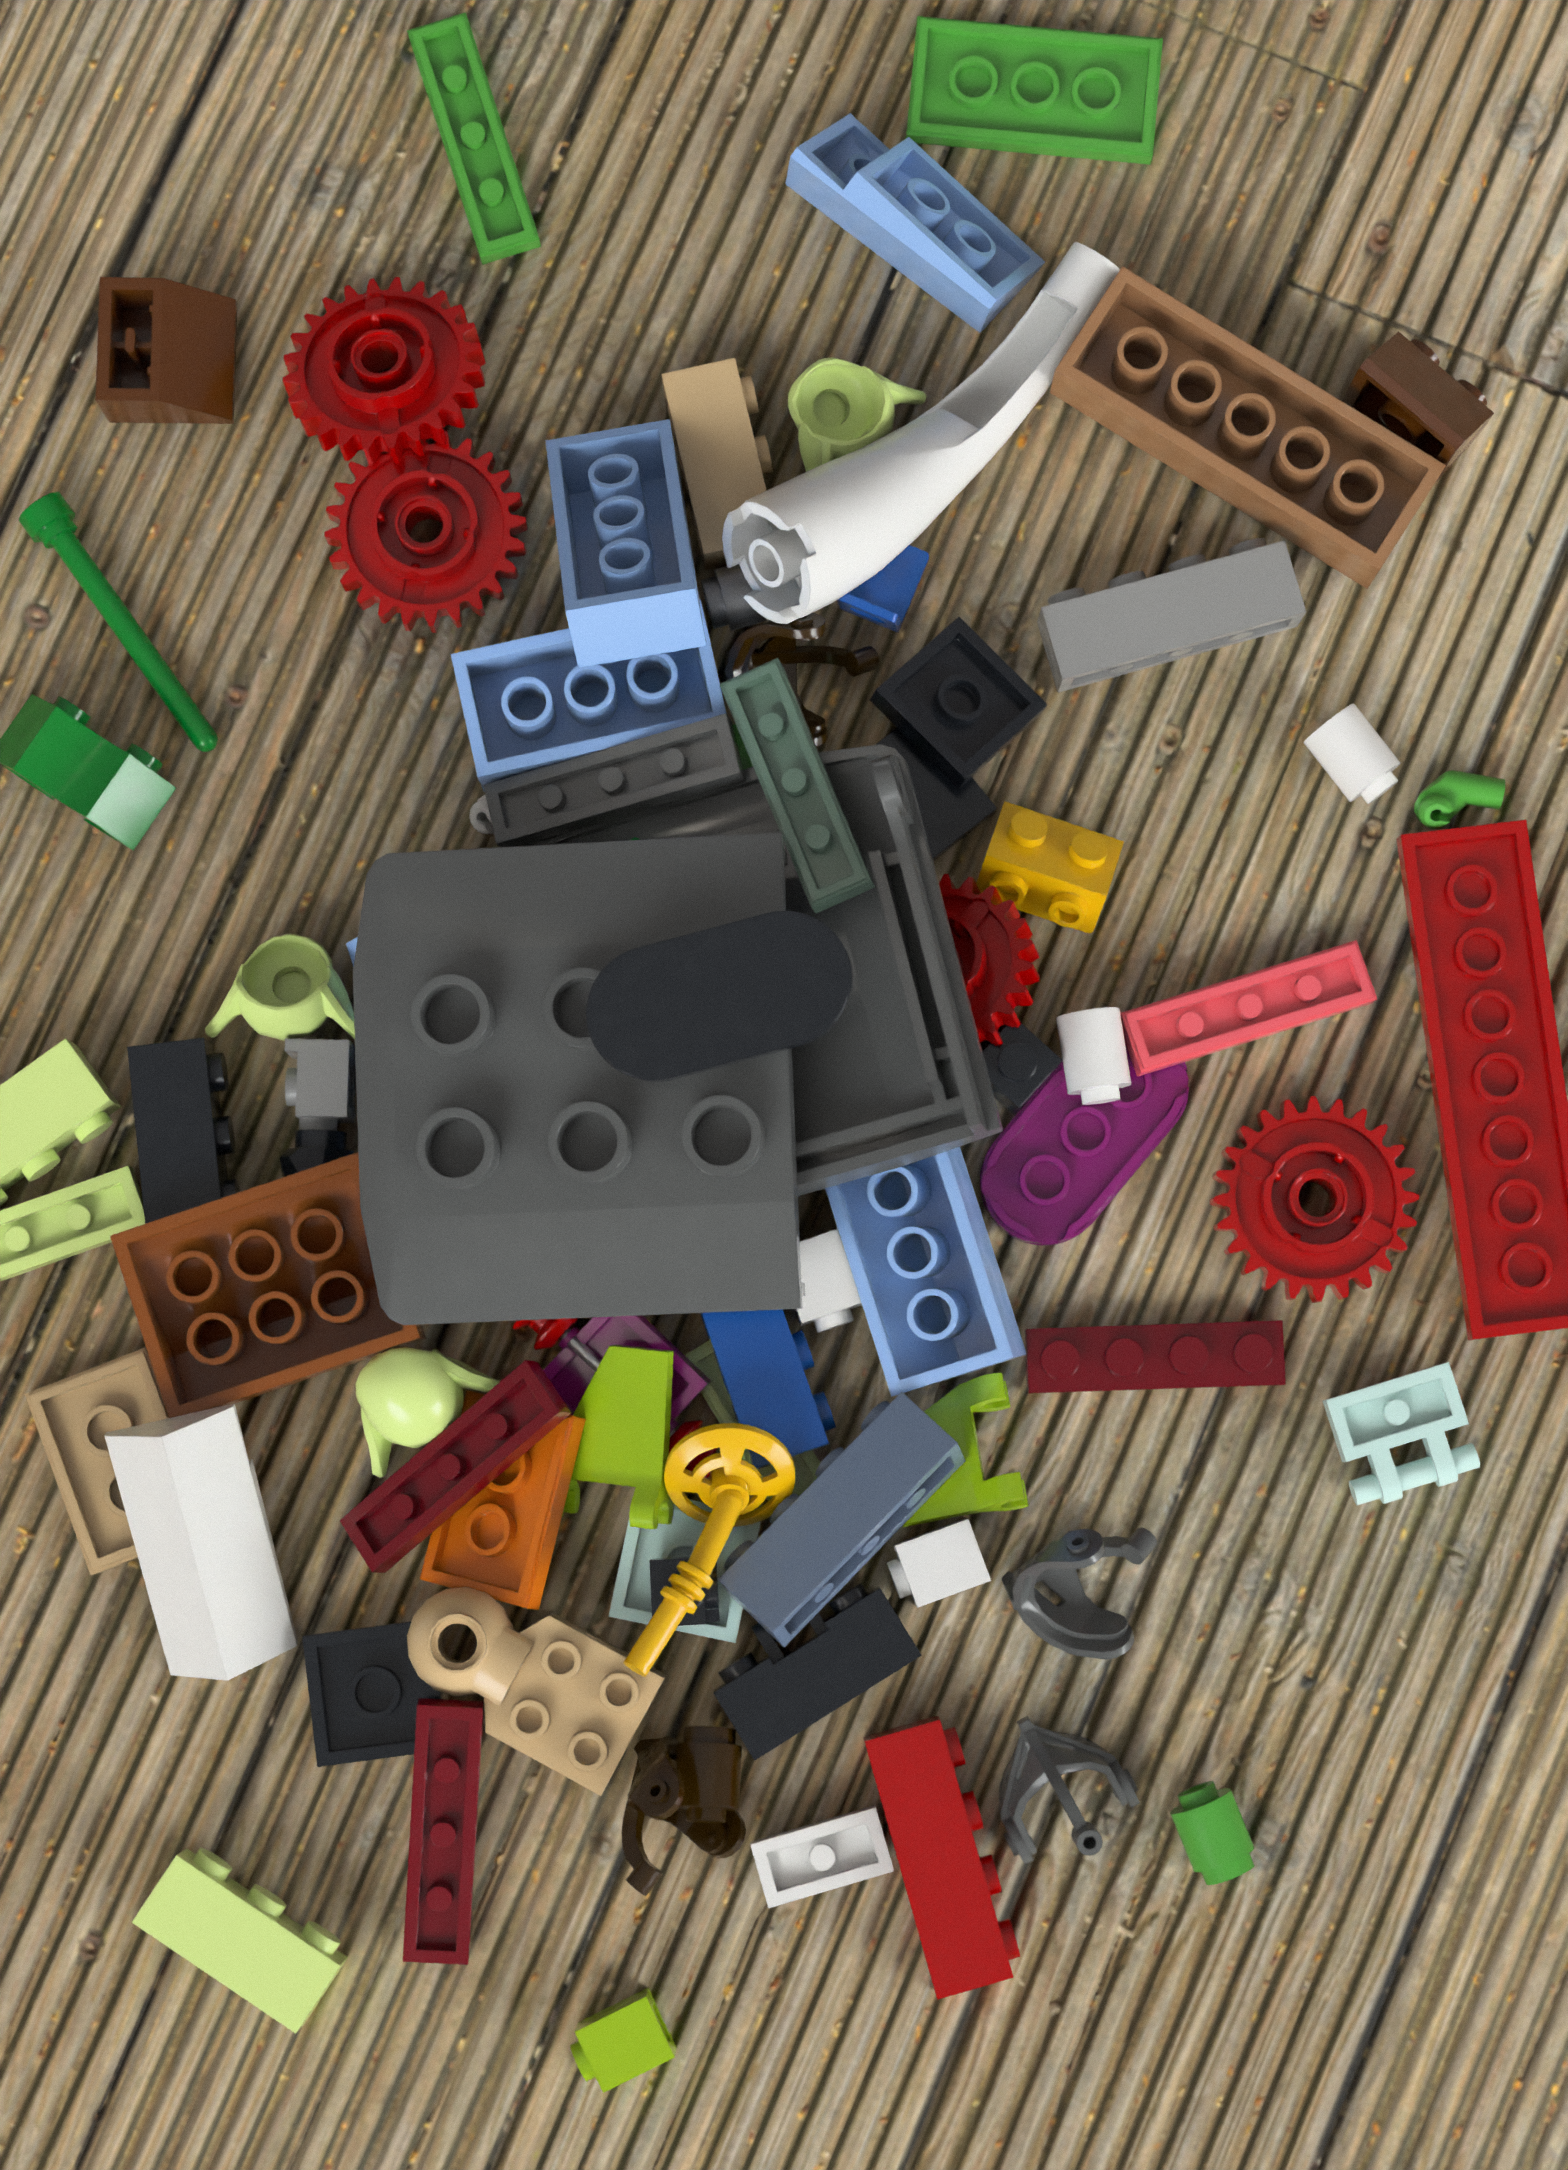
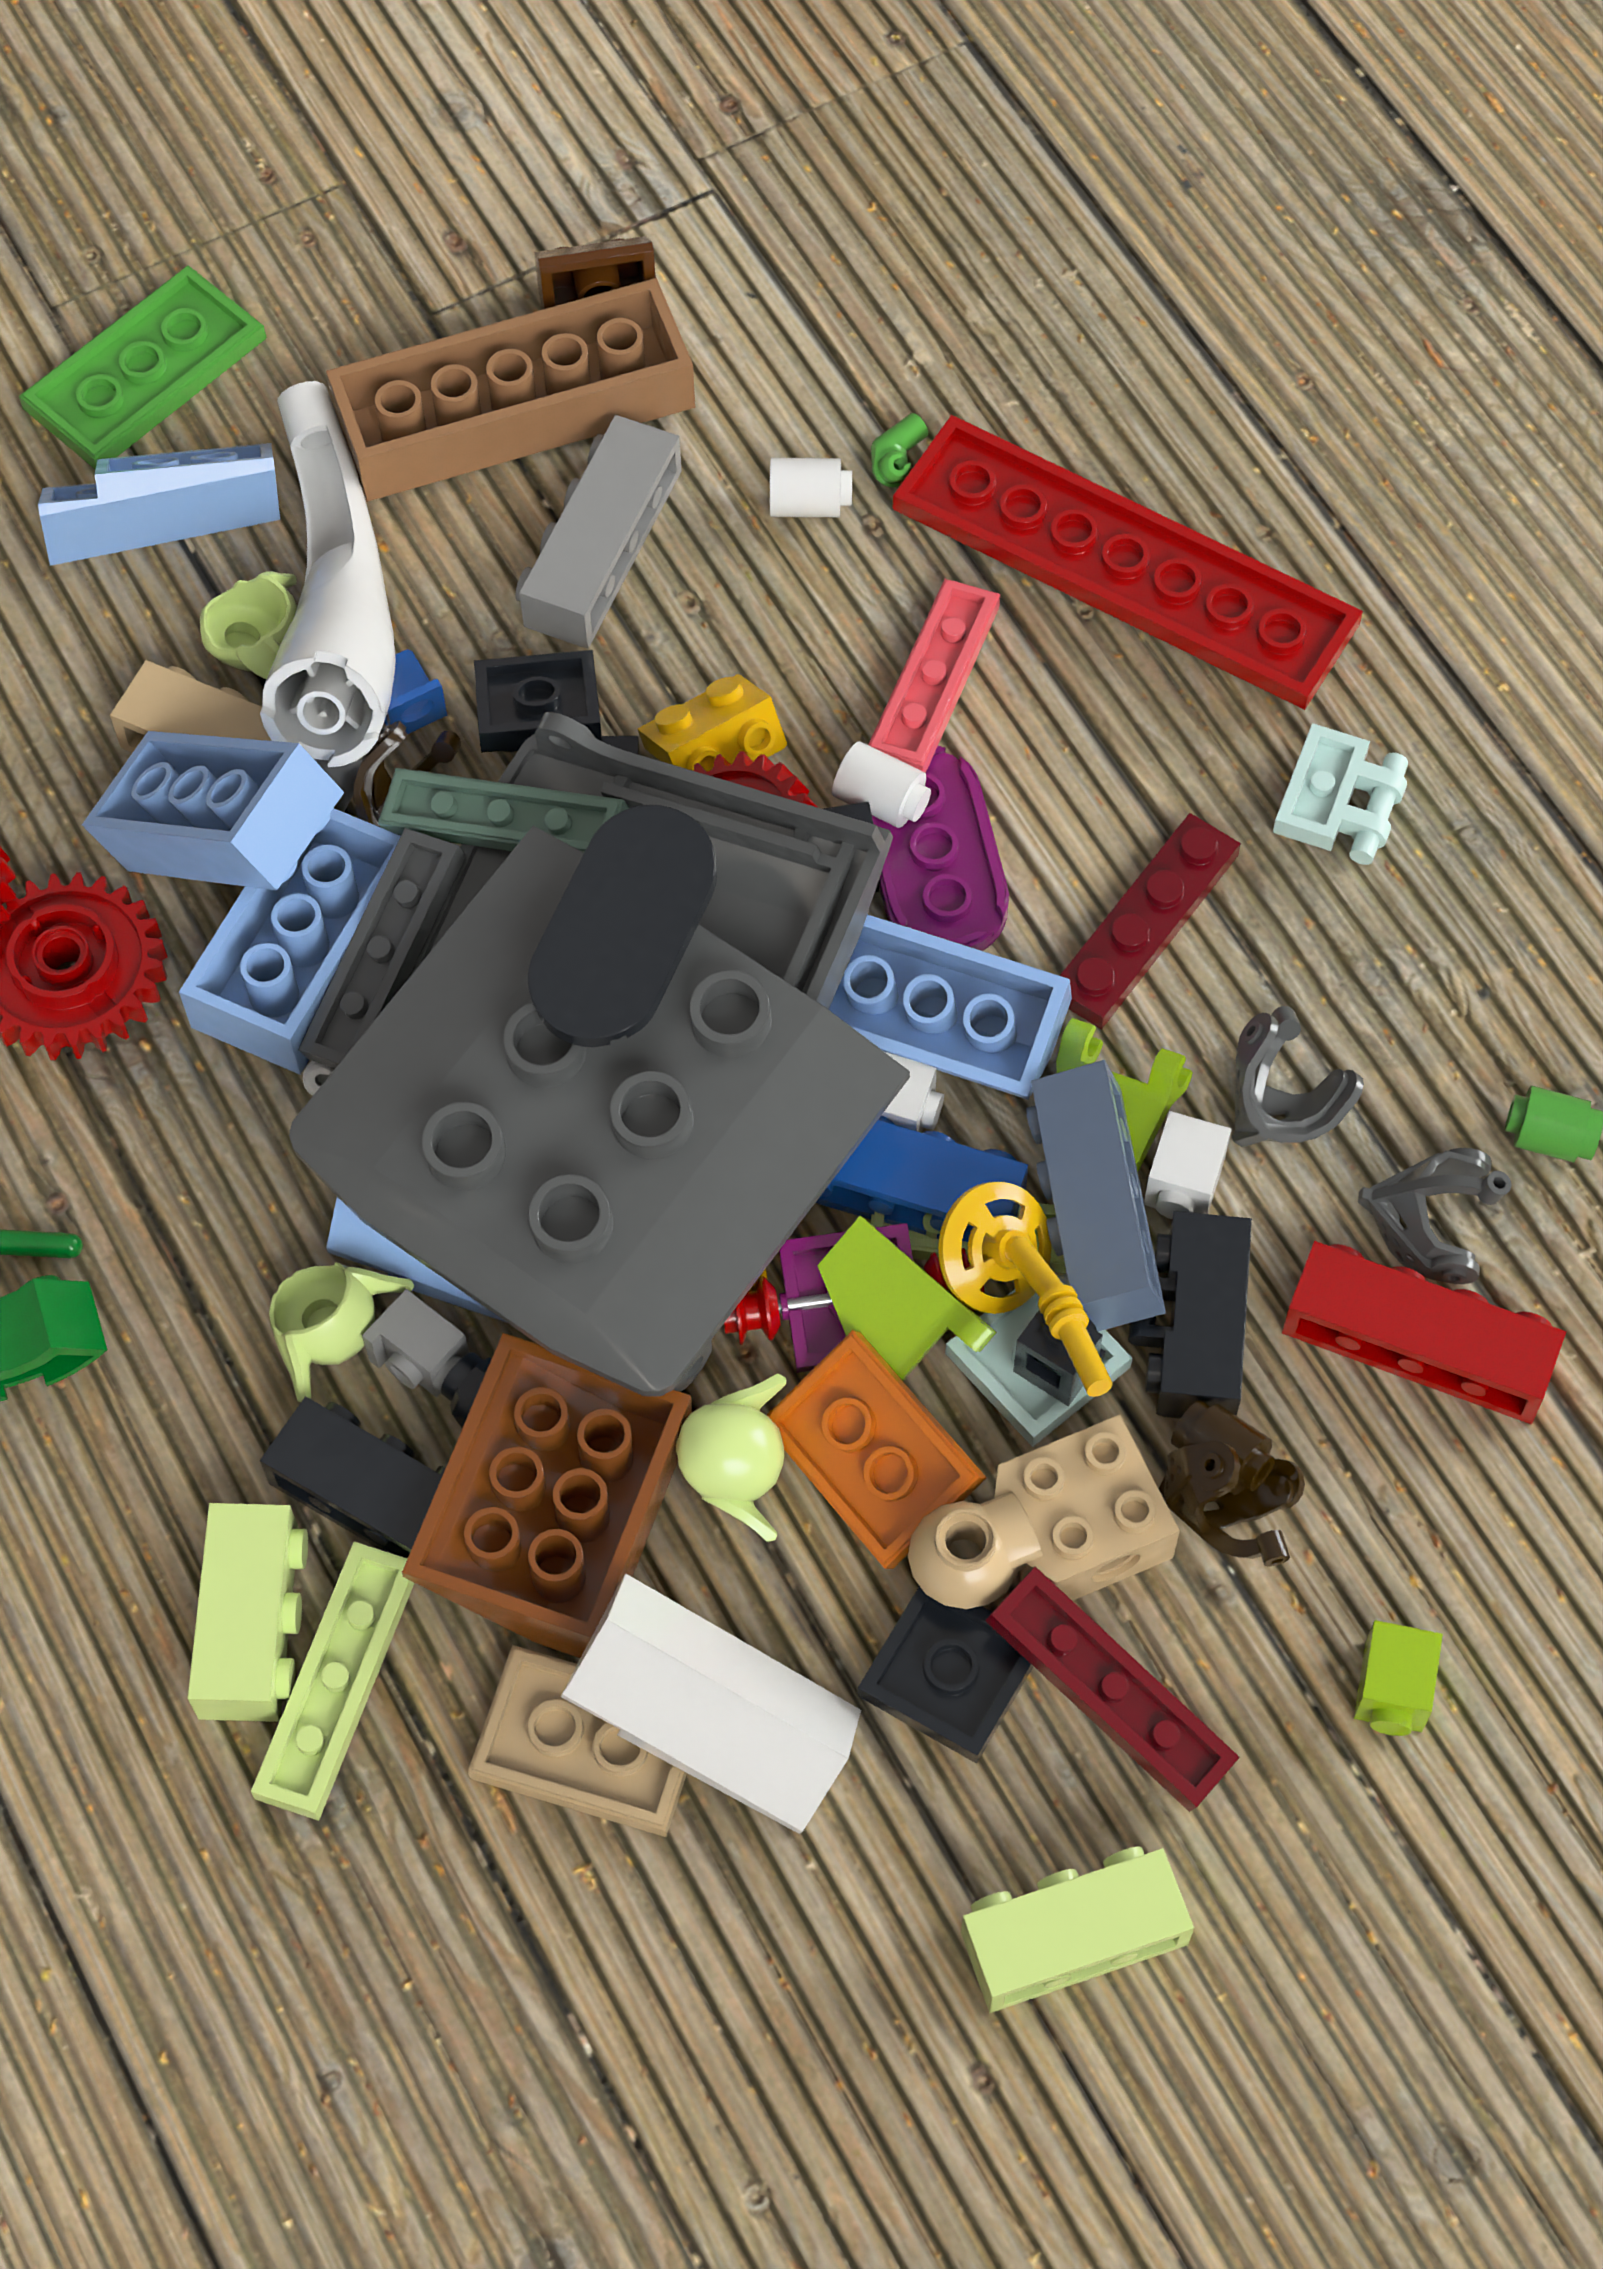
camera: 50 degrees left, 20 degrees down
(455, 1466) = (816, 1458): dark red plate -> none
(821, 1856) = (1357, 1421): white plate -> none
(1361, 1189) = (1069, 738): red gear -> none

